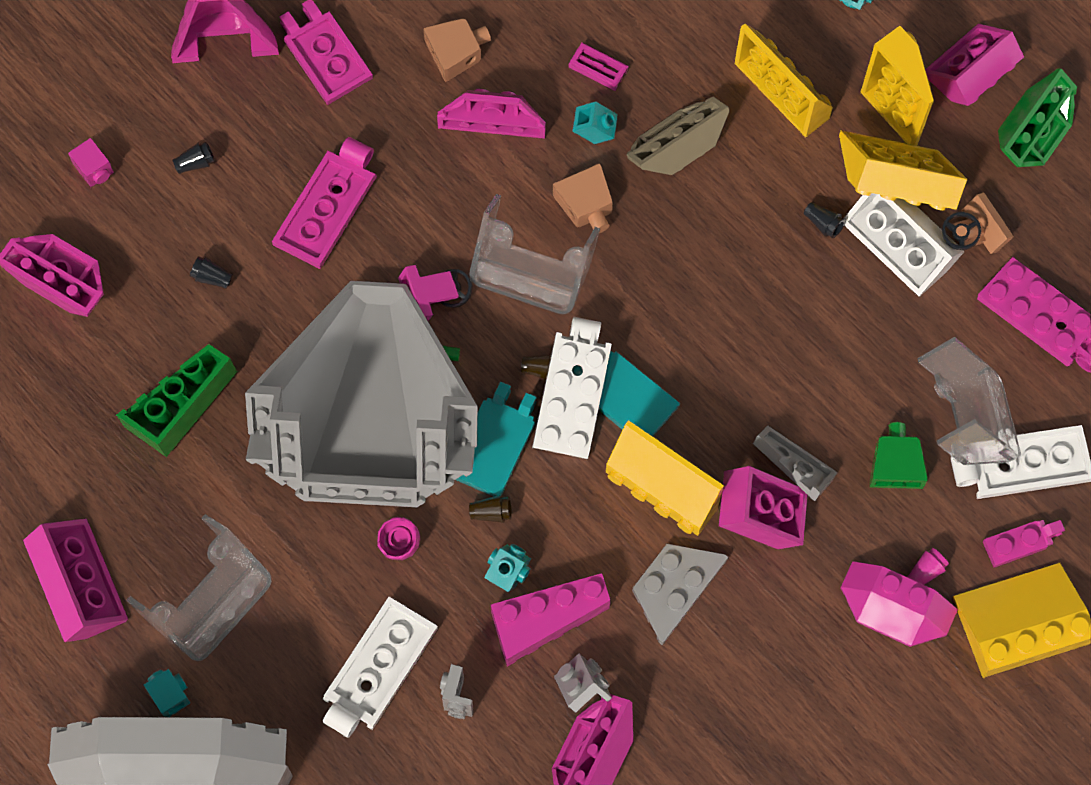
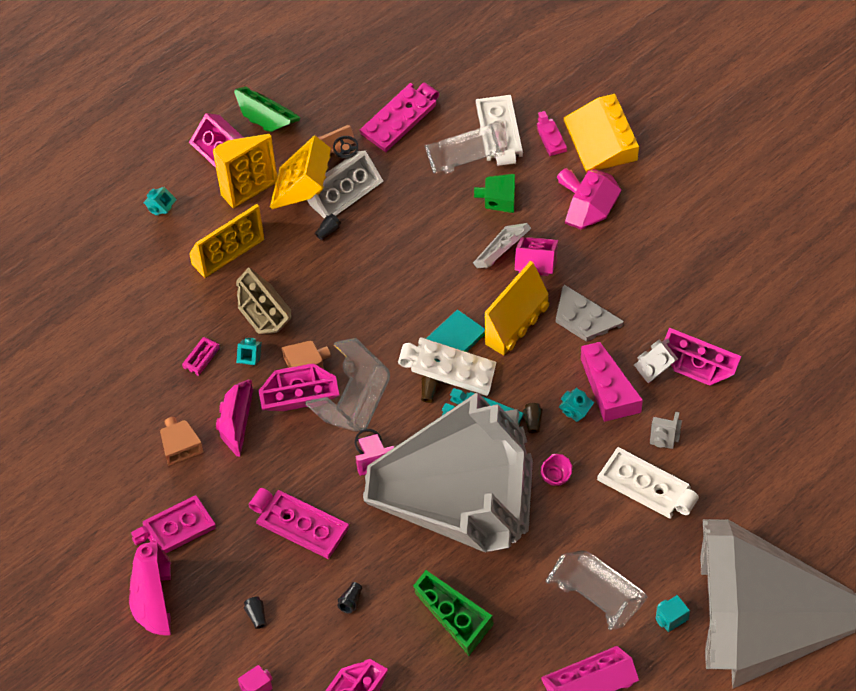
camera: 85 degrees left, 15 degrees down
(529, 184) = (293, 386): none -> dark pink wedge

